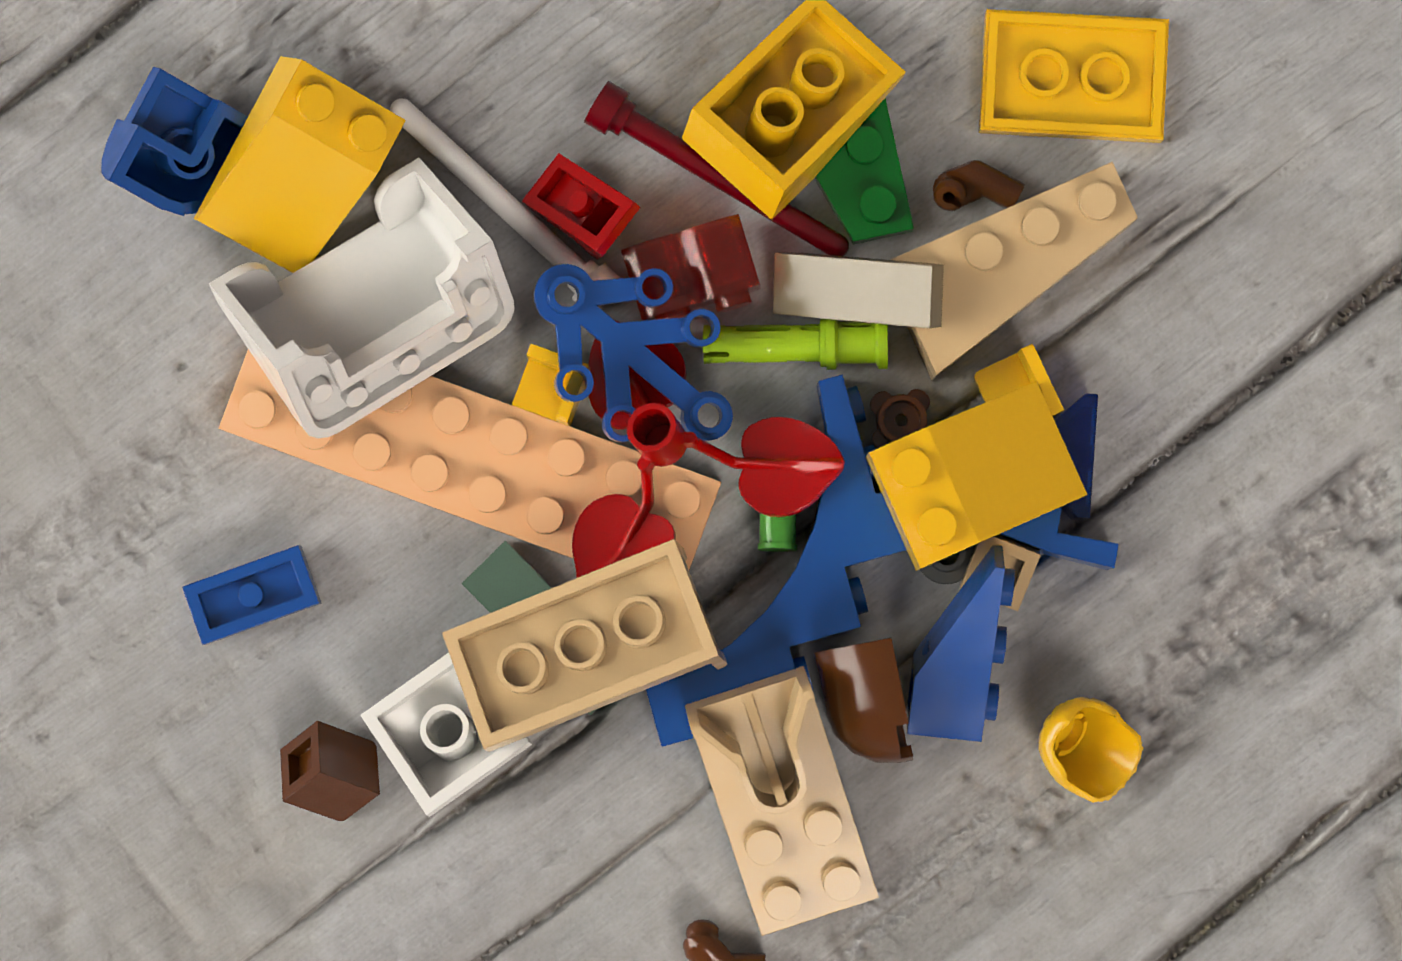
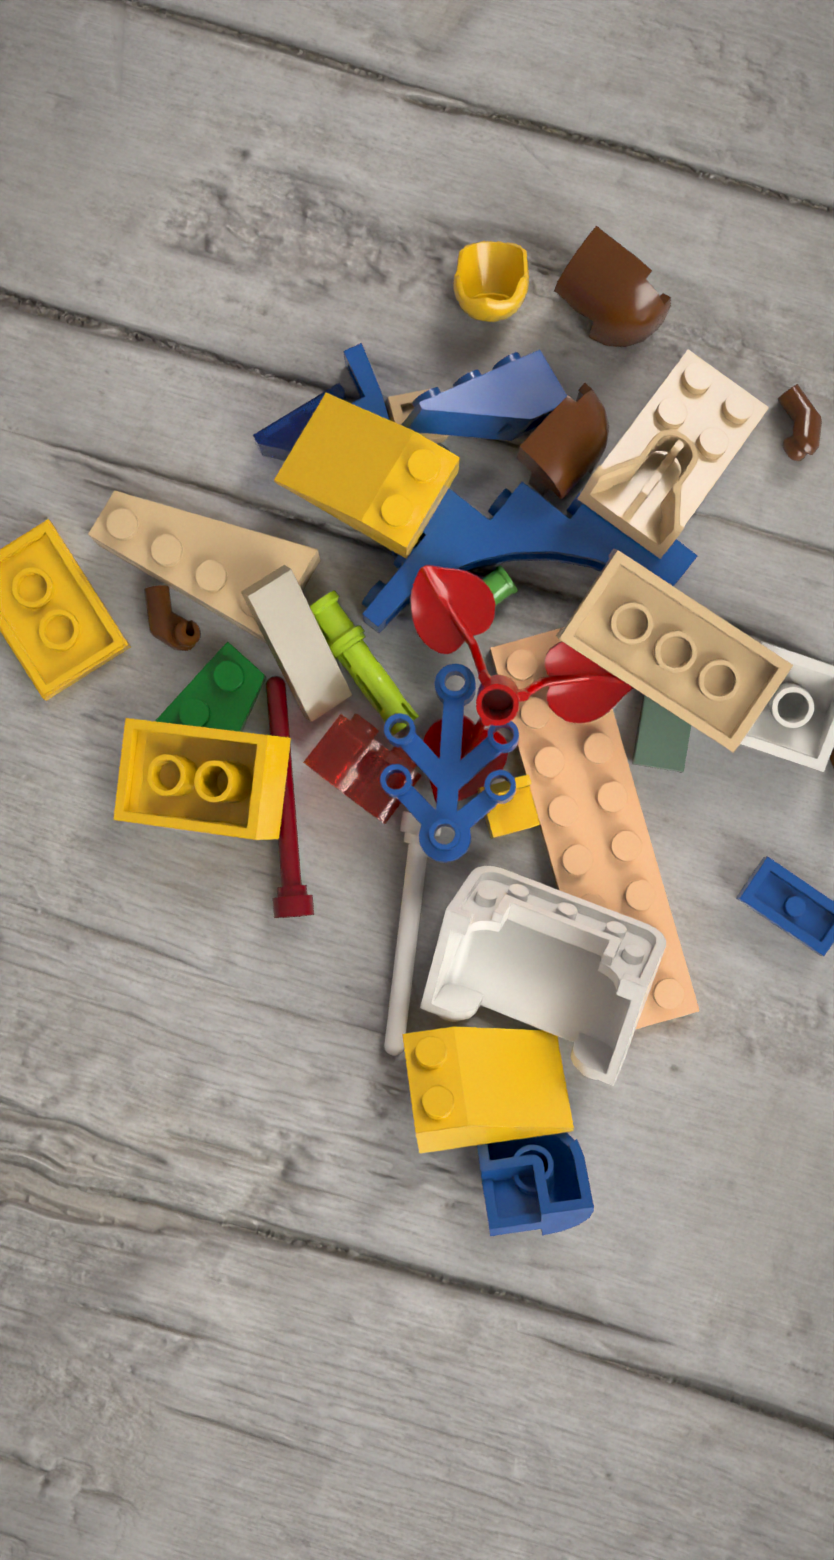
camera: 130 degrees left, 0 degrees up
(580, 205) = (373, 873): red slope -> none
(886, 409) = (361, 574): reddish brown plate -> none
(987, 852) = (612, 291): none -> reddish brown brick
(1015, 373) = (278, 503): yellow panel -> none

